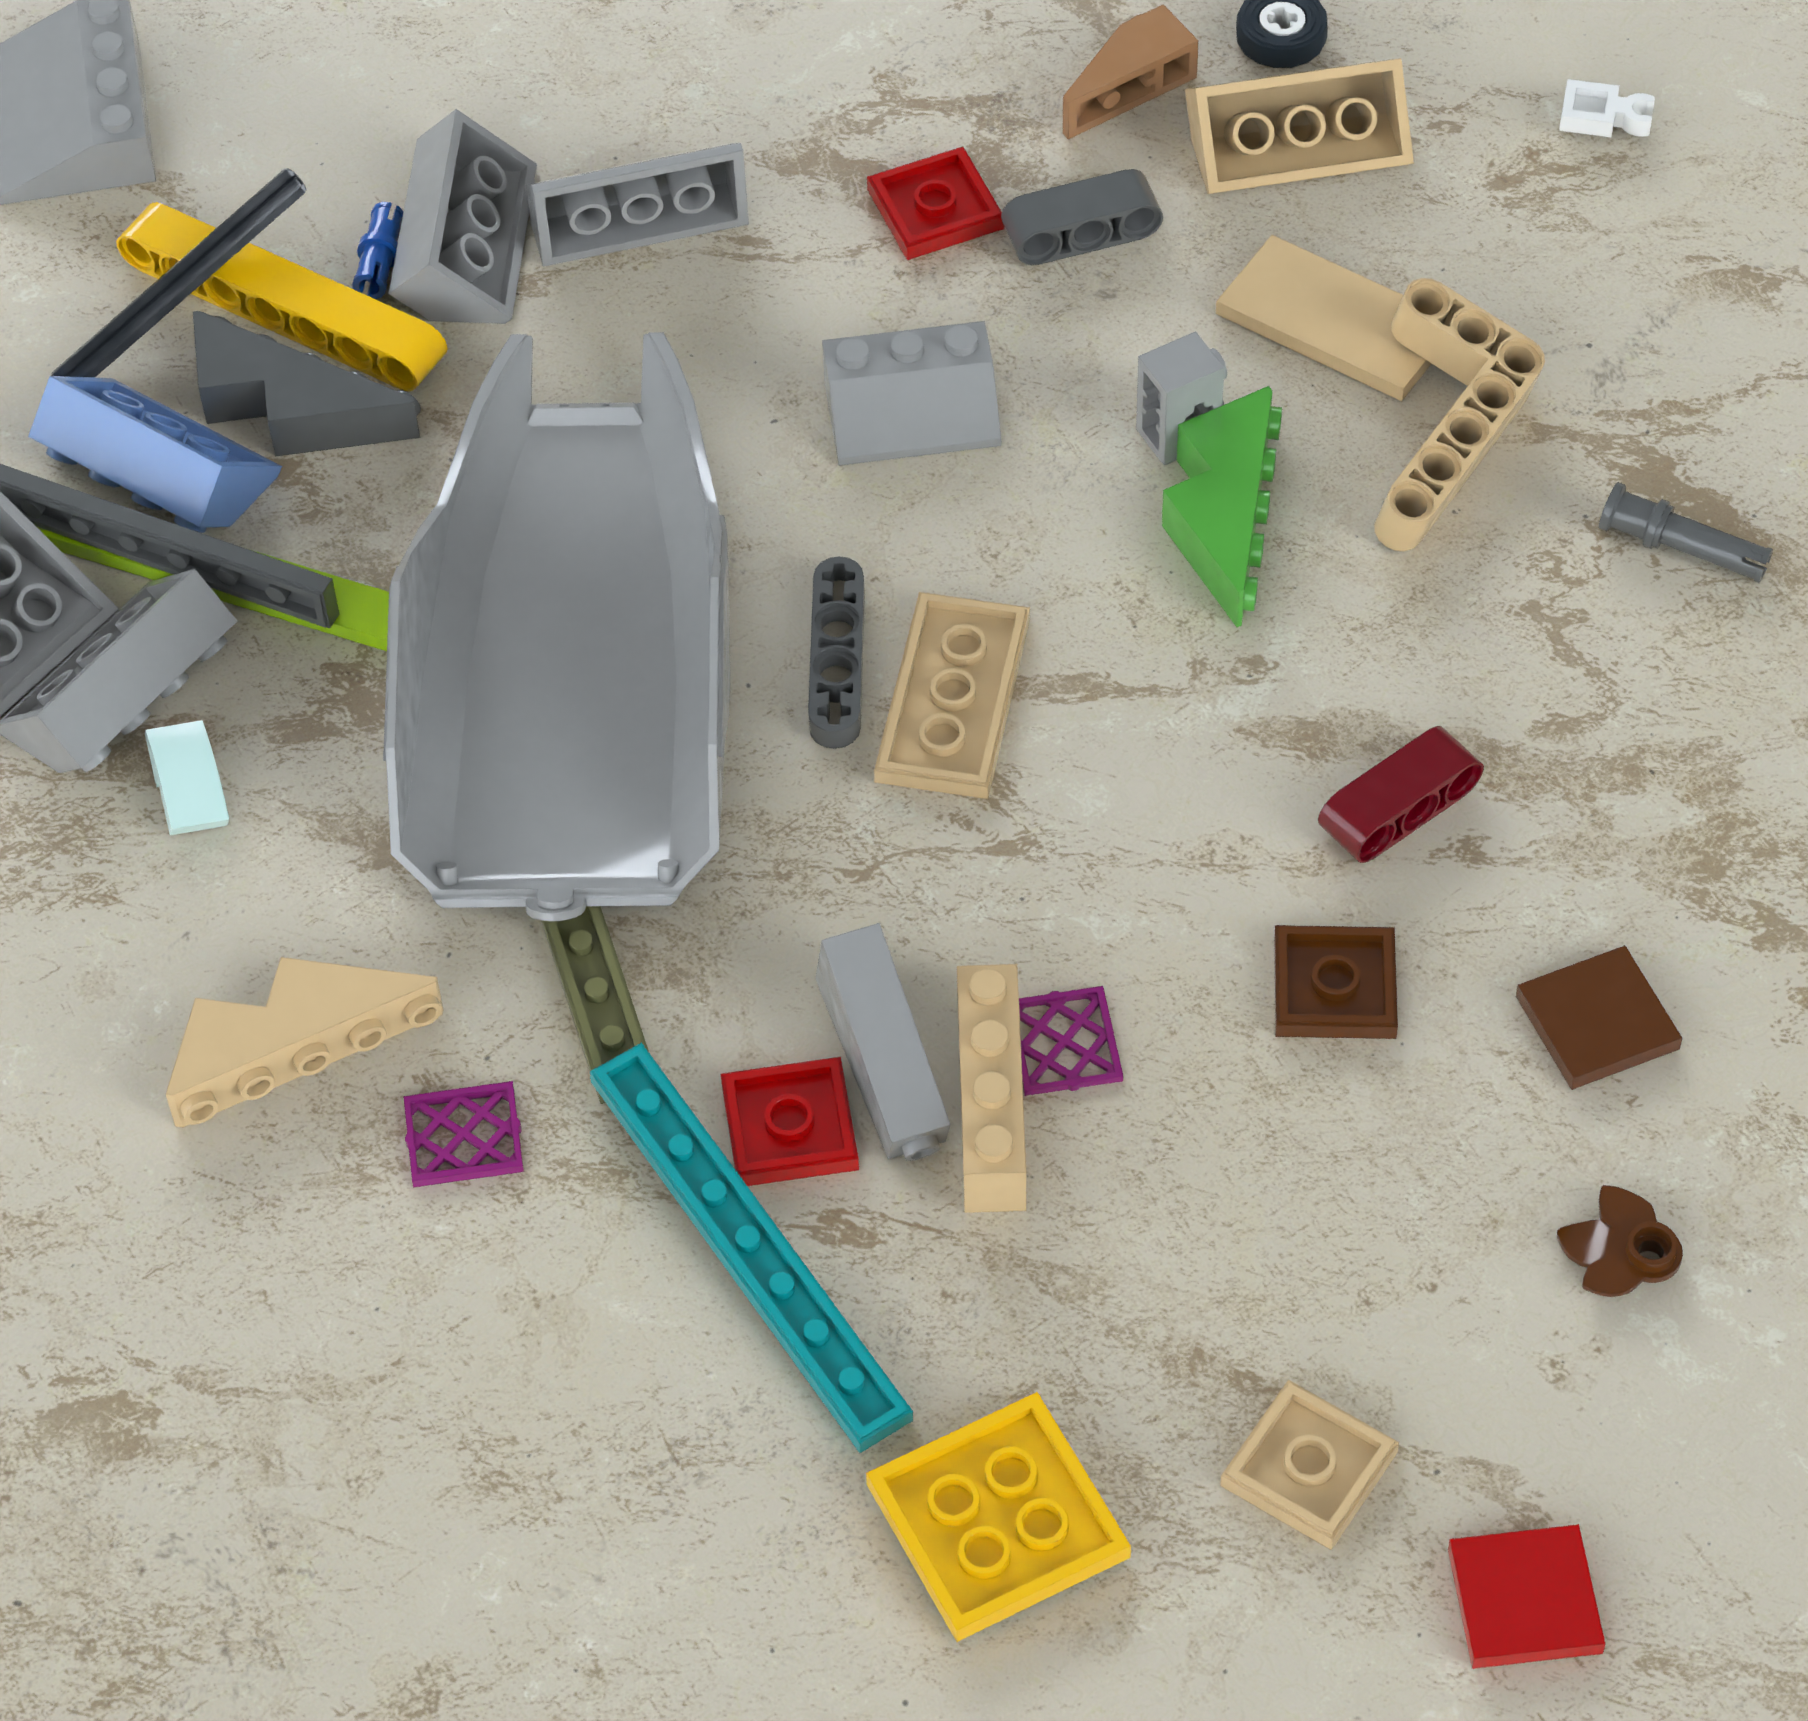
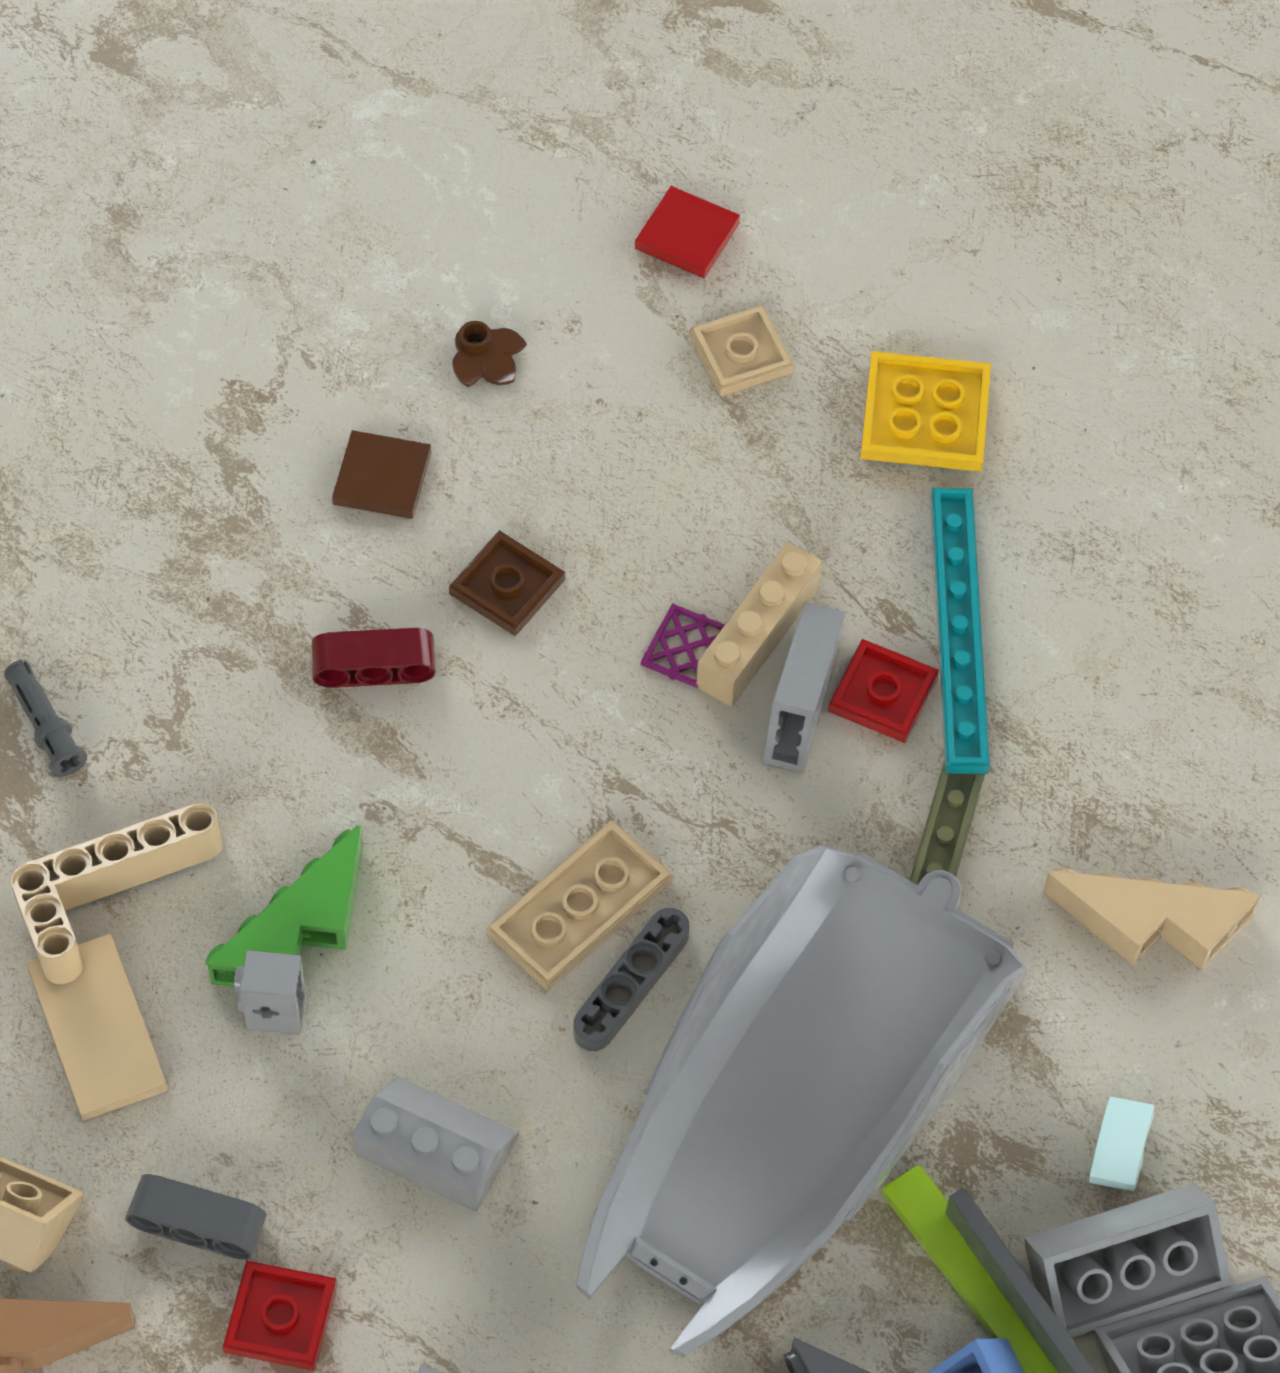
camera: 150 degrees left, 5 degrees up
(472, 1169) = (1072, 826): magenta window -> none

